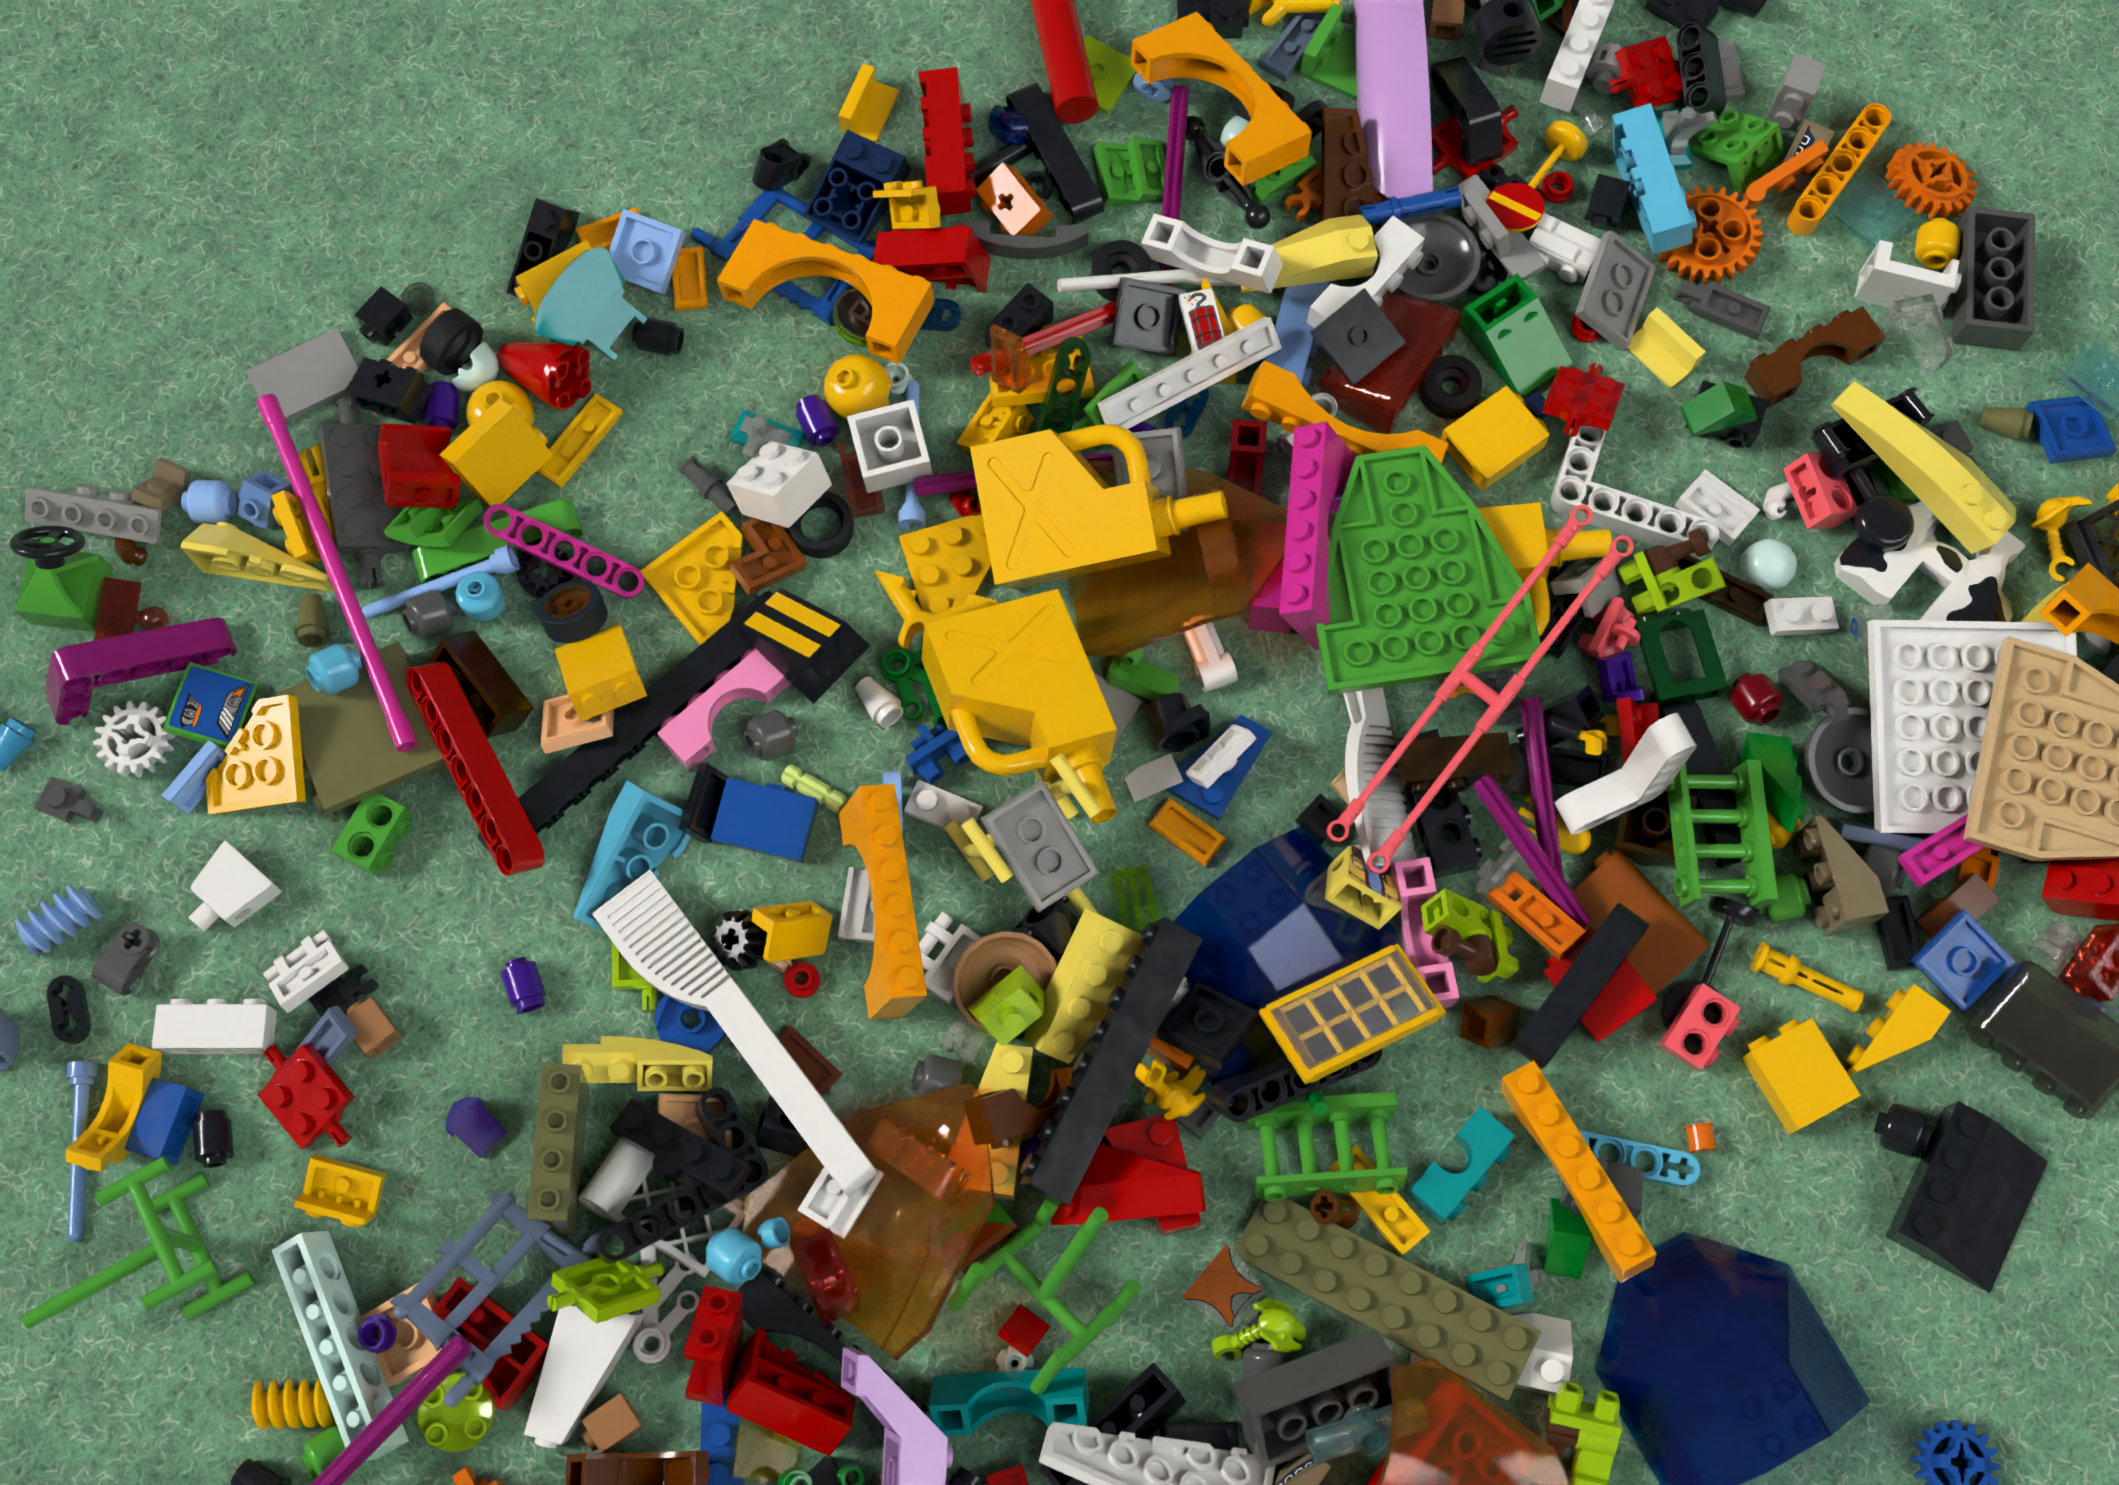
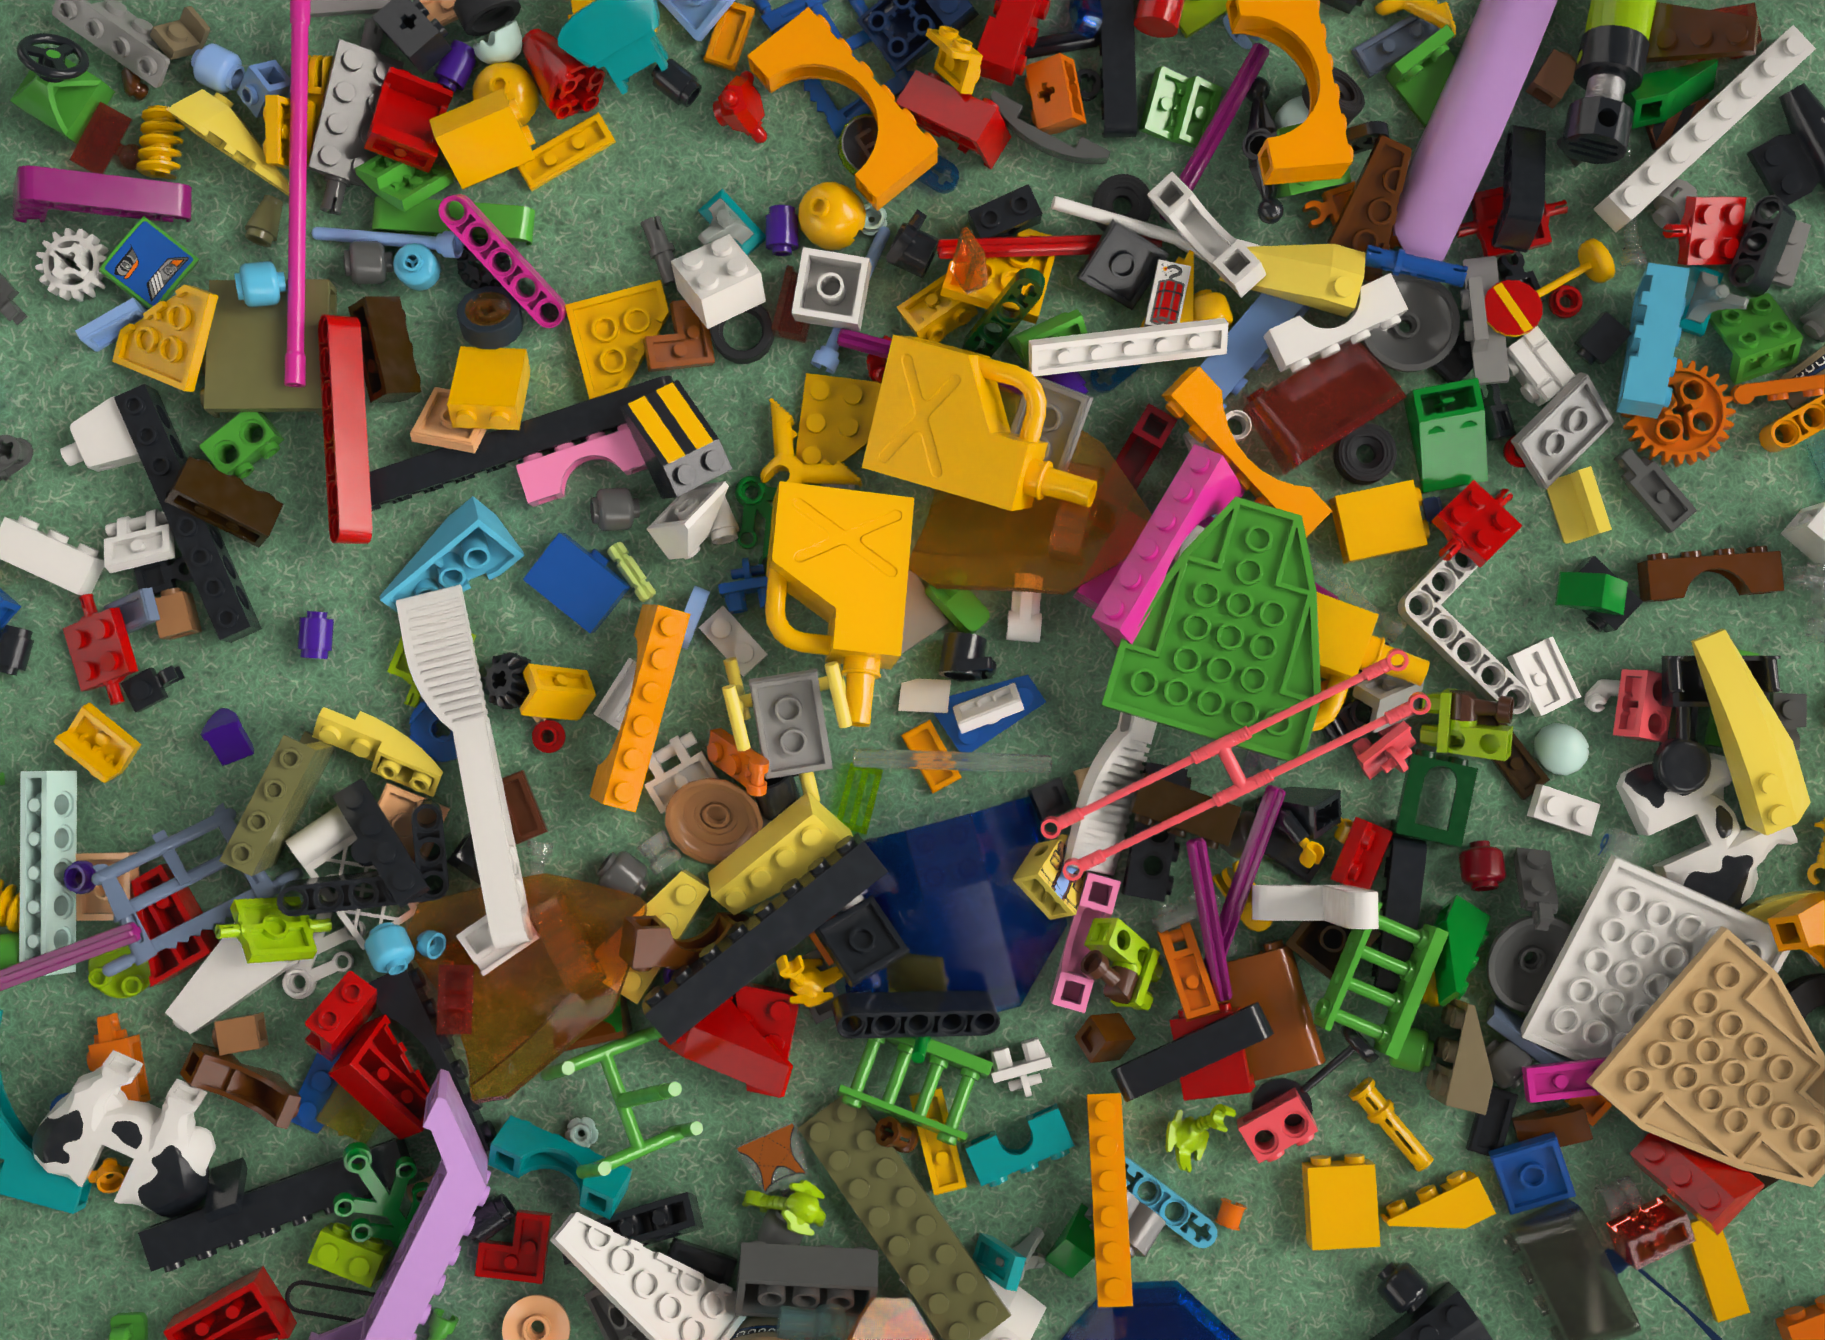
camera: 25 degrees right, 15 degrees up
(178, 589) = (158, 143): none -> yellow piece
(345, 923) = (198, 540): none -> black brick
(370, 1115) = (148, 687): none -> black plate
(380, 889) = (224, 501): none -> dark brown brick
(703, 803) = (531, 544): black tile -> none
(730, 333) = (741, 107): none -> red rock
(849, 711) = (688, 520): none -> white slope
(947, 383) = (912, 247): none -> black piece
(1003, 910) = (744, 766): none -> orange plate
(1009, 1007) = (705, 847): lime torso -> none
(1023, 1330) = (599, 1111): red tile -> none
(1209, 823) = (952, 760): none -> clear axle
(1351, 1013) = (985, 988): clear piece -> none
(1357, 337) = (1297, 379): black plate -> none
(1431, 1072) = (1034, 1061): none -> white hips
(1555, 308) = (1497, 415): none -> black plate
(1617, 1078) = (1192, 1135): none -> lime piece
(1618, 678) = (1370, 796): dark purple tile -> none

